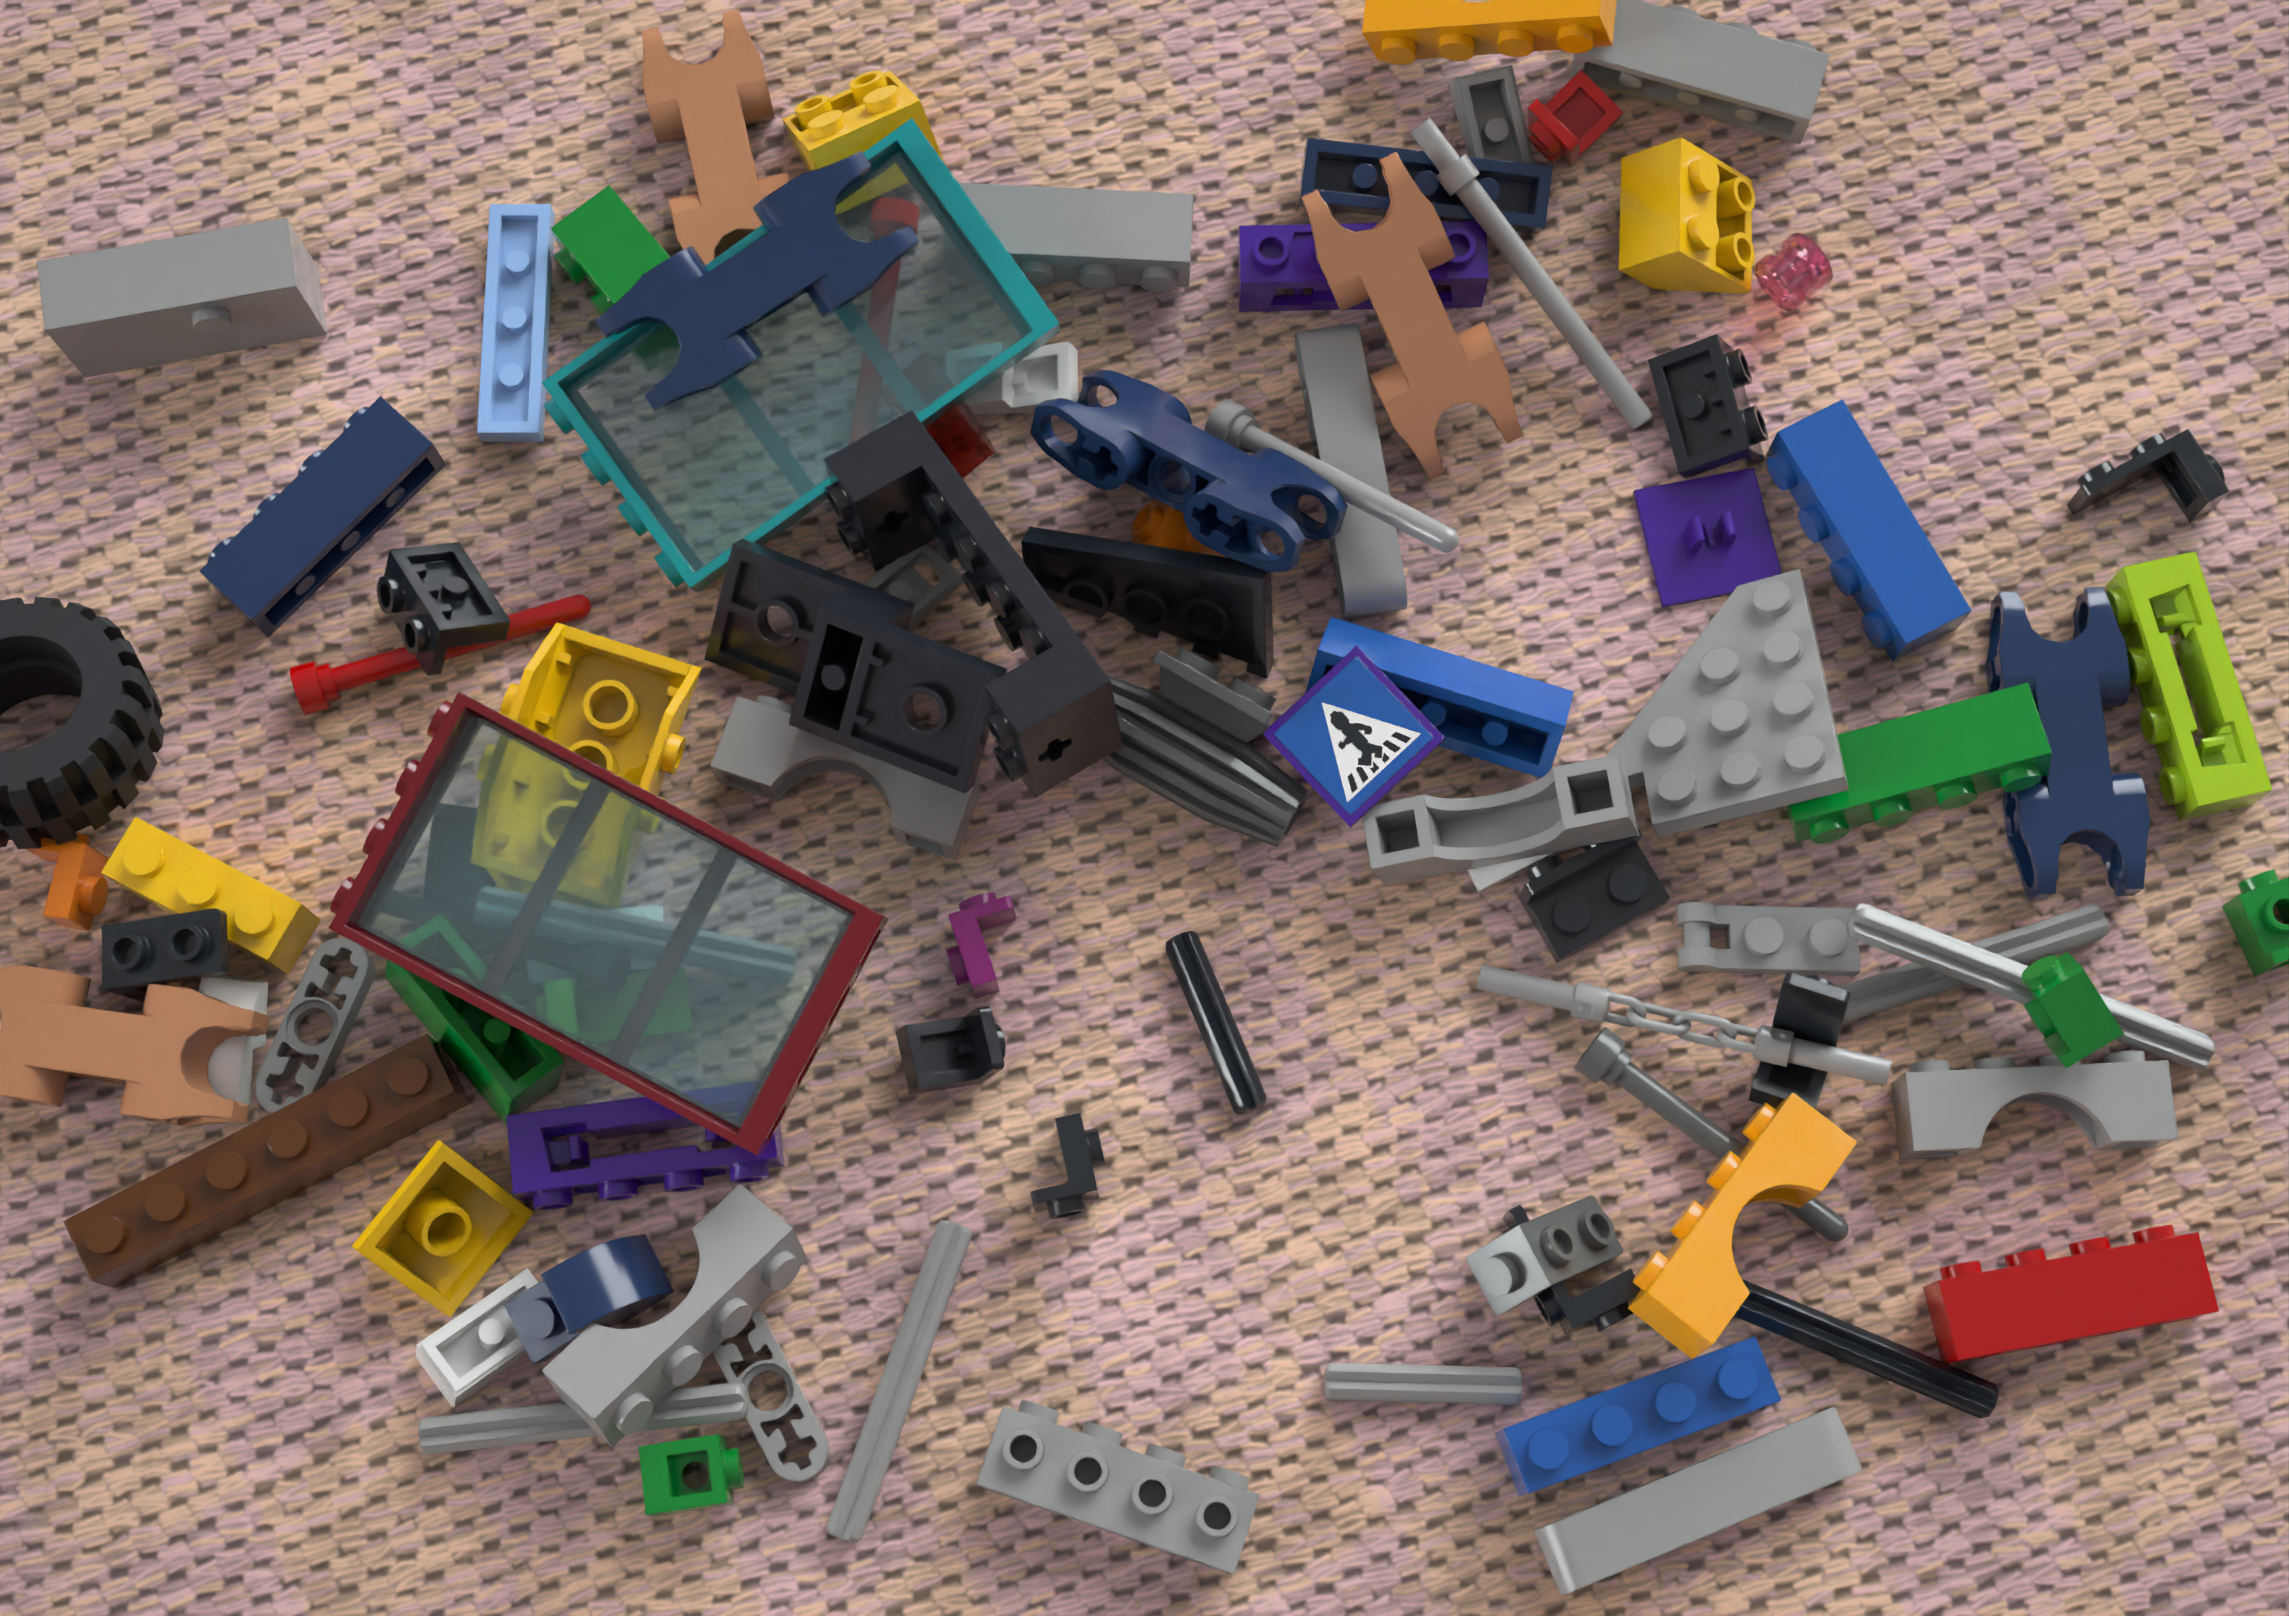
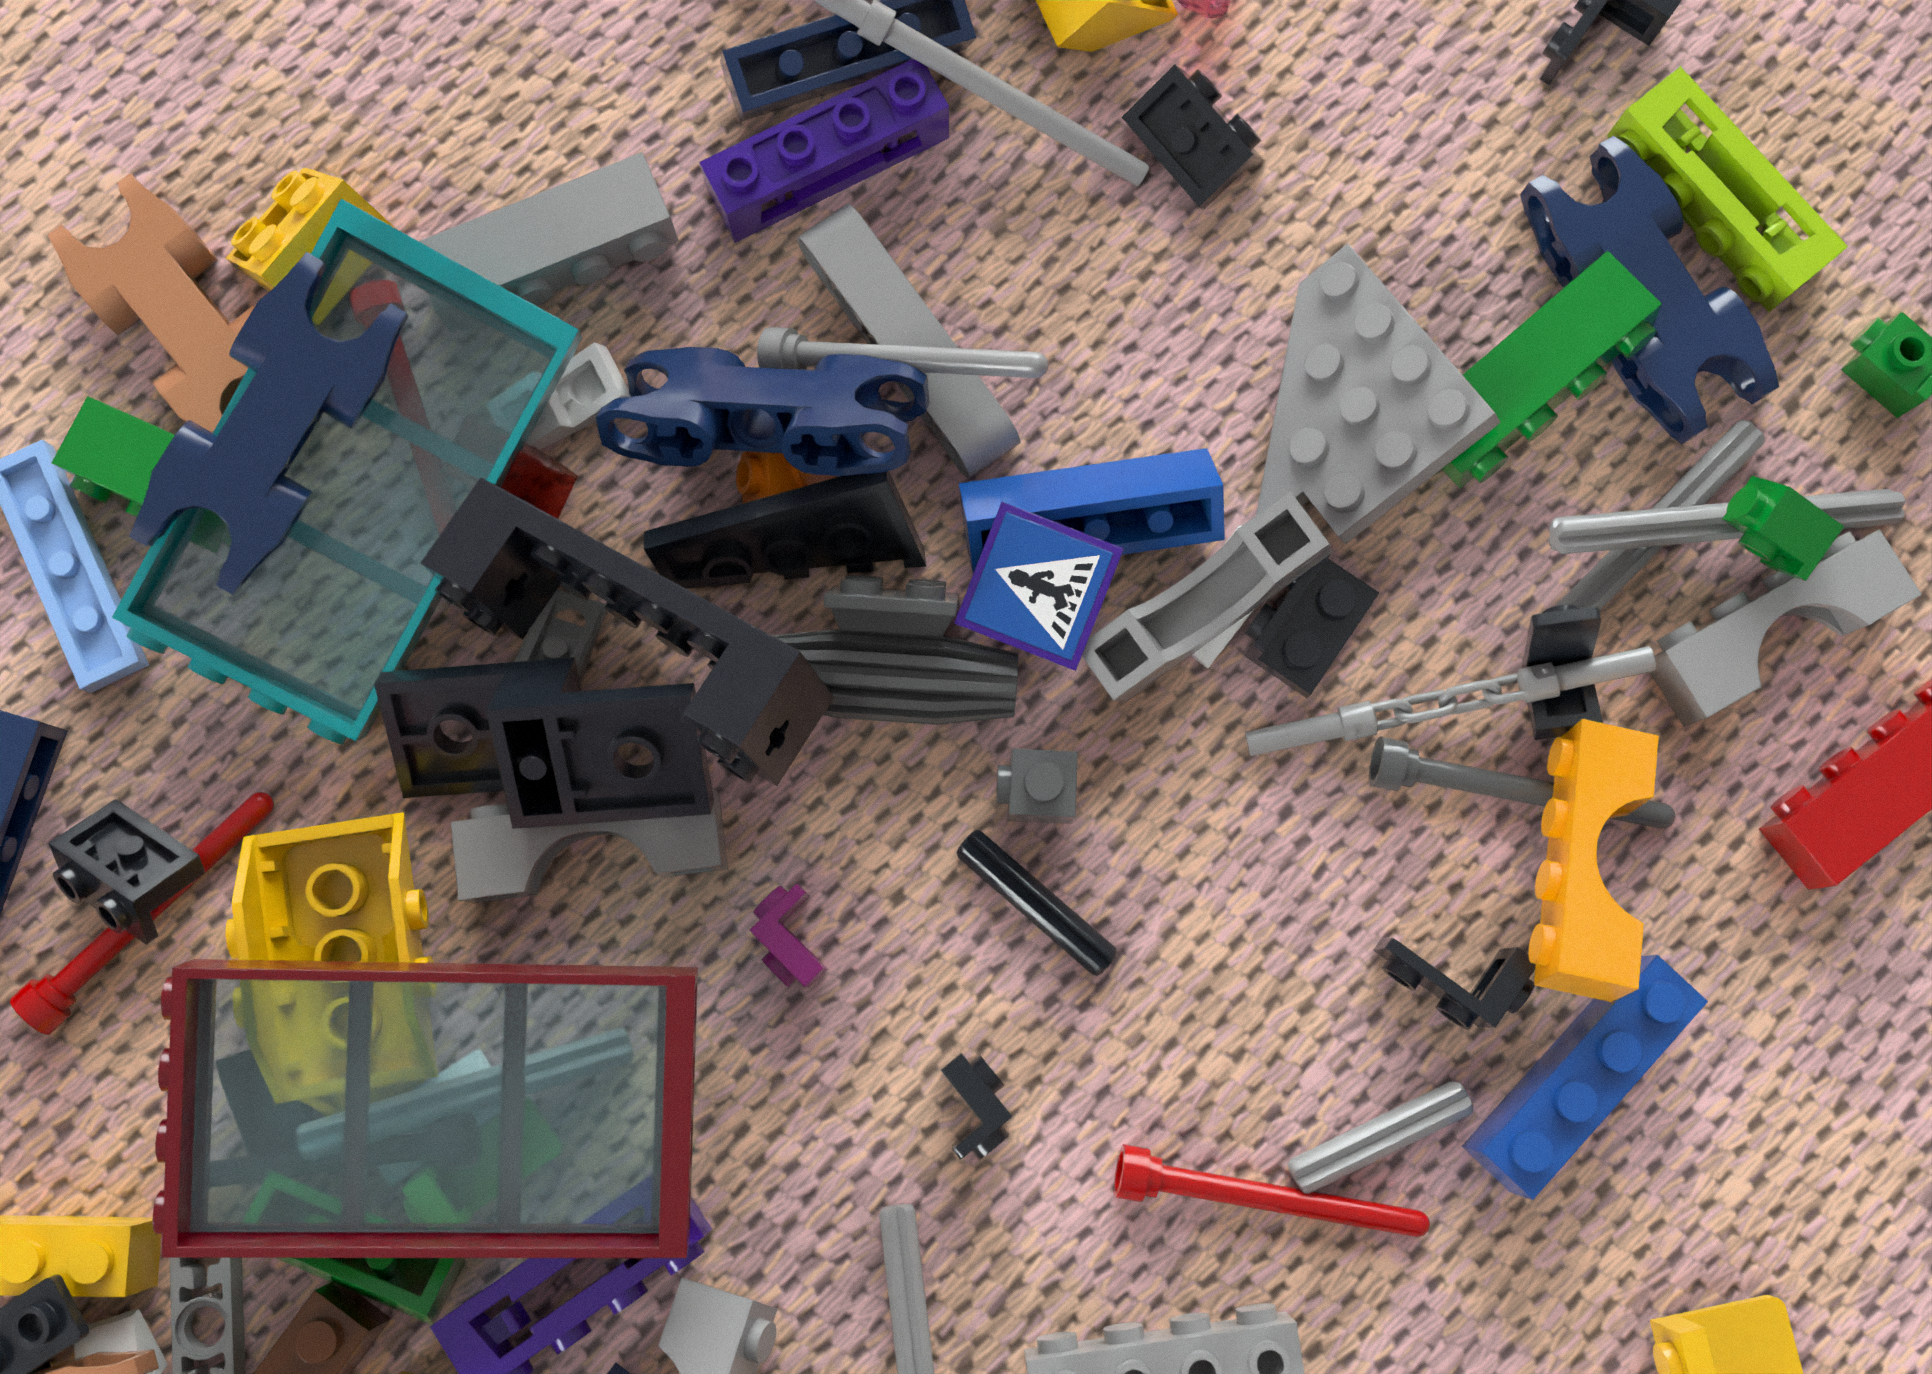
camera: 30 degrees left, 5 degrees up
(951, 1051) = (813, 1051): black bracket -> none
(1191, 1308) = (1145, 1175): none -> red piece
(1268, 917) = (1039, 786): none -> dark grey brick
(1391, 270) = (861, 139): nougat piece -> none
(1544, 1253) = (1434, 973): dark grey bracket -> none
(1697, 1500) = (1669, 1121): light grey beam -> none
(1706, 536) = (1247, 252): dark purple piece -> none
(1768, 940) = (1481, 587): light grey plate -> none
(1866, 531) = (1386, 181): blue brick -> none
(1868, 1351) = (1754, 910): black axle -> none

